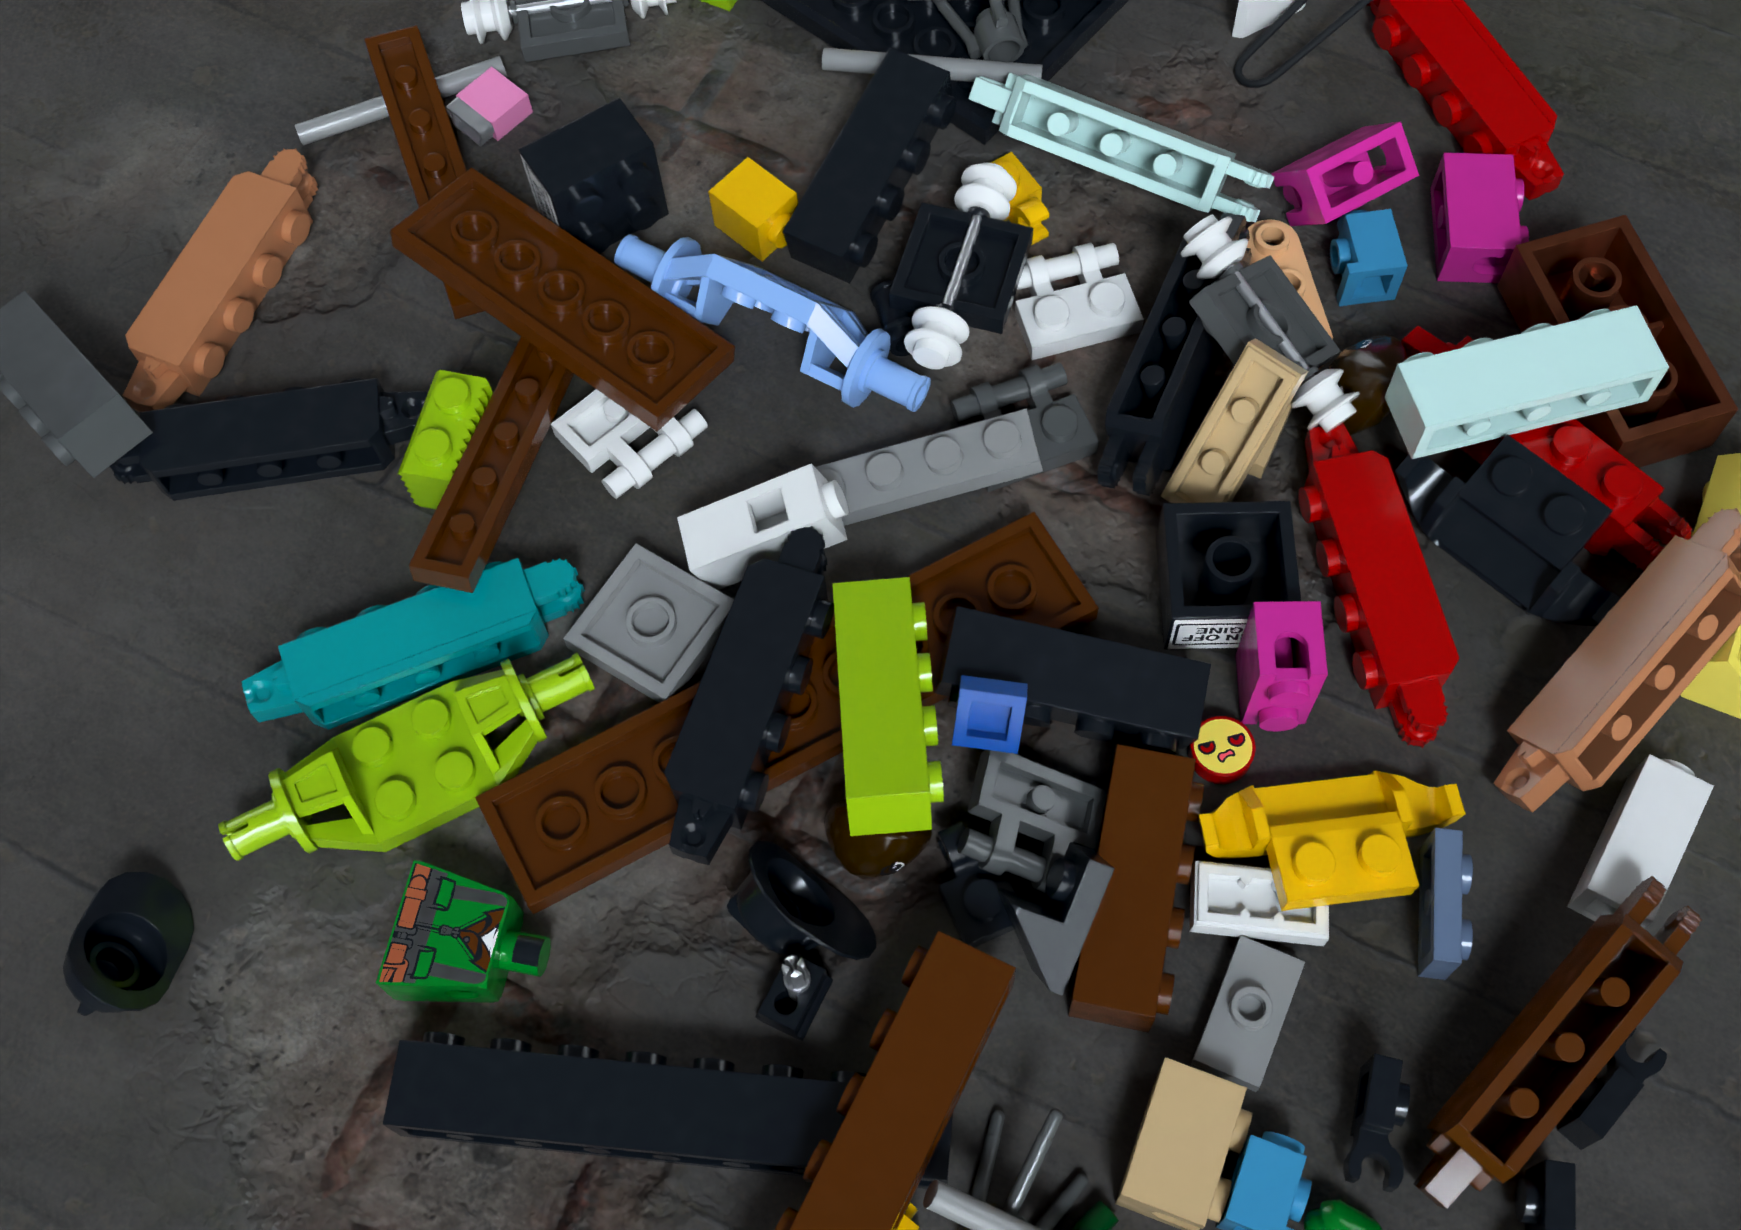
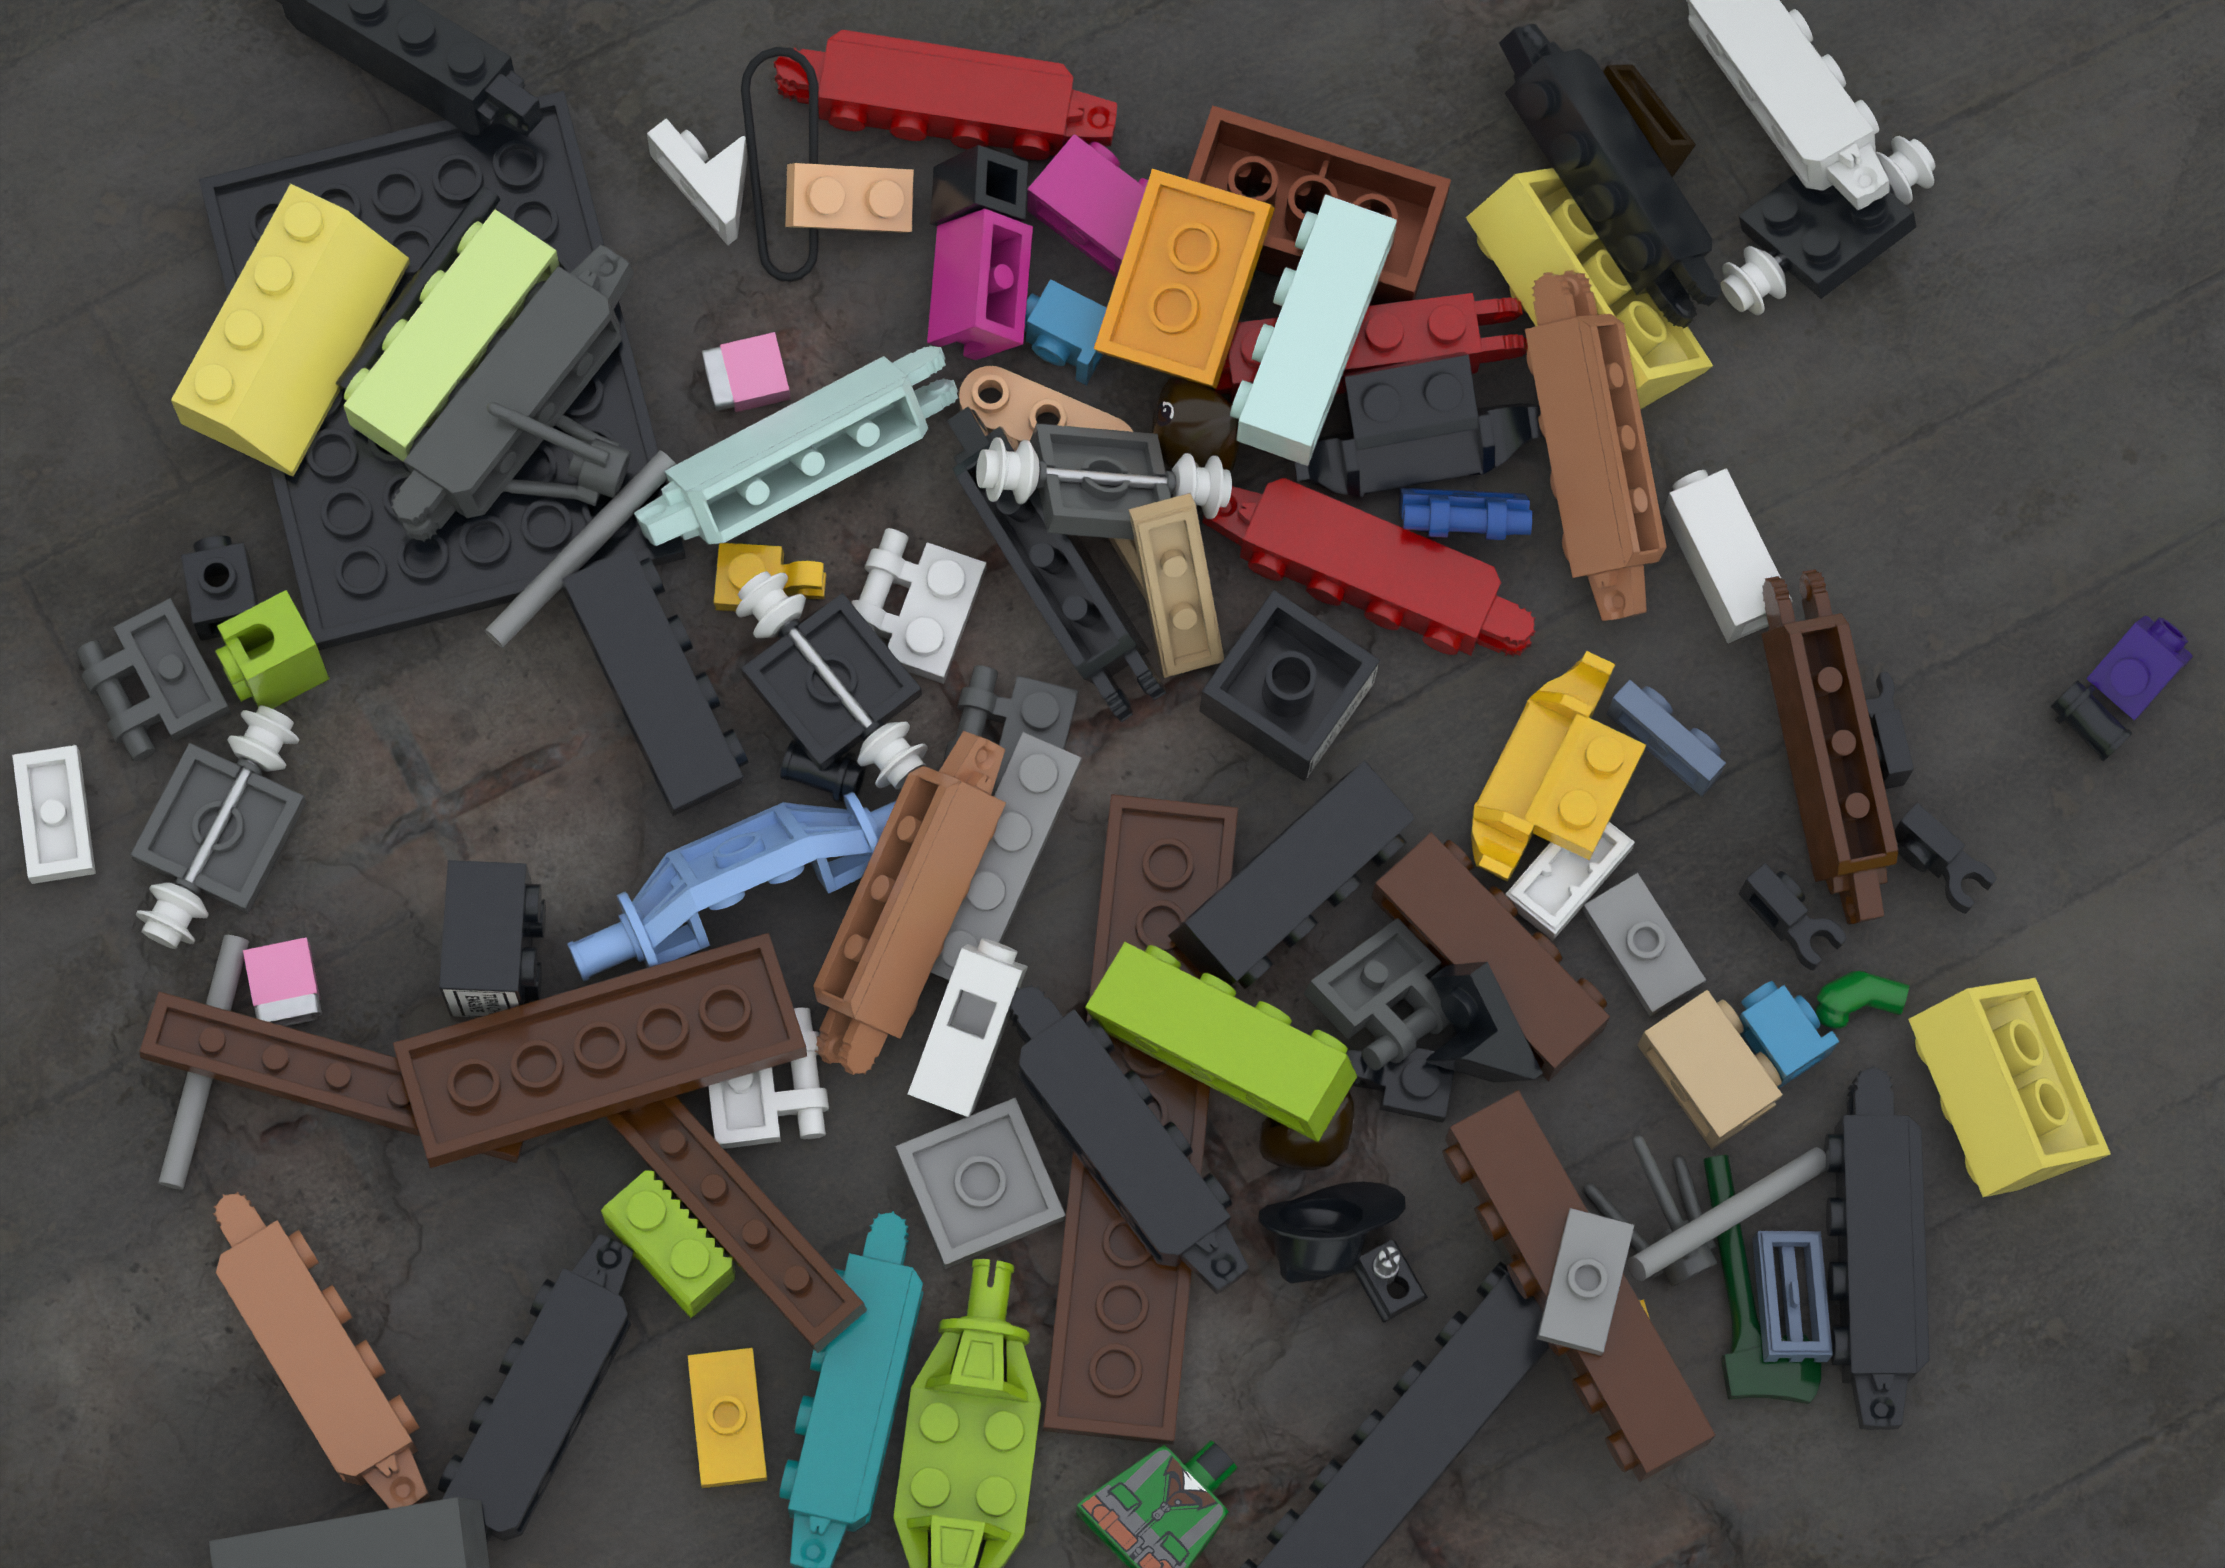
camera: 65 degrees left, 10 degrees up
(346, 573) = (727, 1418): none -> yellow plate
(753, 208) = (614, 814): yellow brick -> none
(833, 417) = (907, 902): none -> nougat hinge
(877, 1148) = (1585, 1282): none -> light grey plate
(989, 714) = (1292, 964): blue plate -> none
(1150, 92) = (746, 373): none -> bright pink piece
(1222, 750) = (1428, 798): tile -> none
(1278, 674) = (1401, 707): dark pink brick -> none
(1330, 64) = (849, 198): none -> light nougat plate
(1426, 123) = (979, 181): none -> black brick
(1477, 275) = (1184, 278): none -> light orange plate
(1497, 626) = (1465, 511): none -> blue plate

